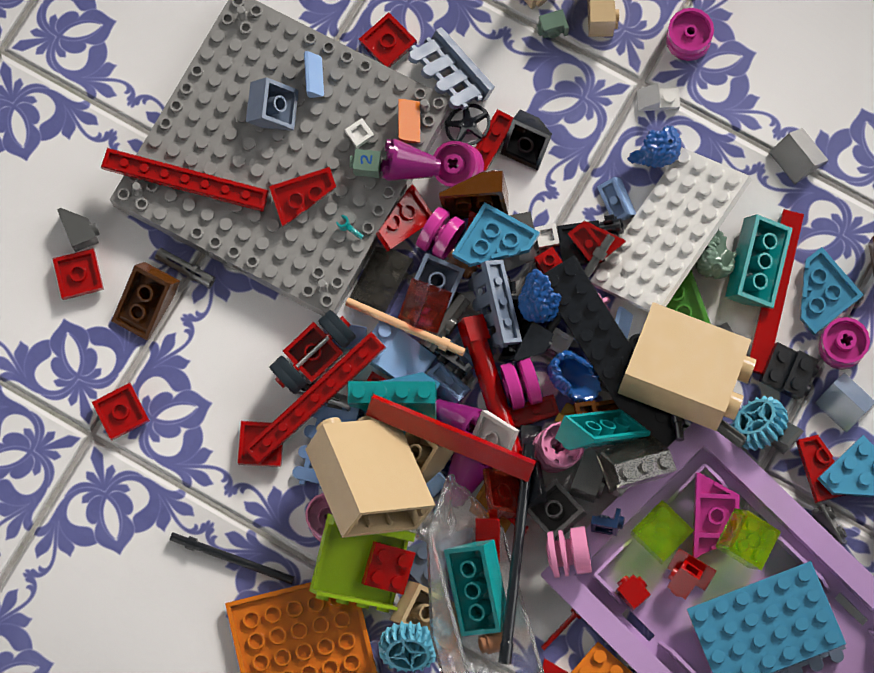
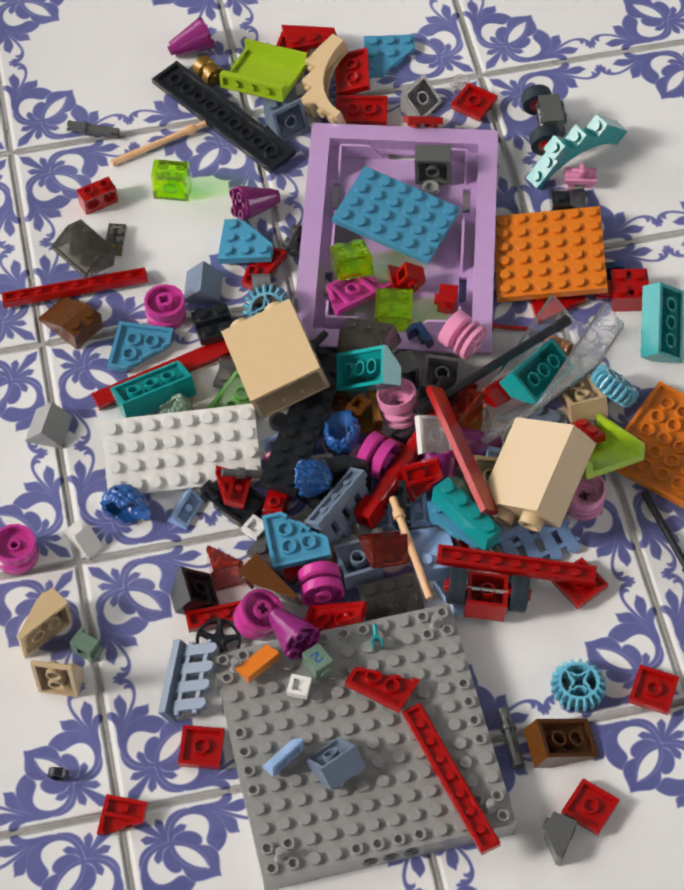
camera: 135 degrees left, 20 degrees down
(168, 357) = (576, 674): none -> medium azure gear
(464, 394) = (421, 476): none -> red wing
(525, 171) = (223, 569): none -> clear red slope

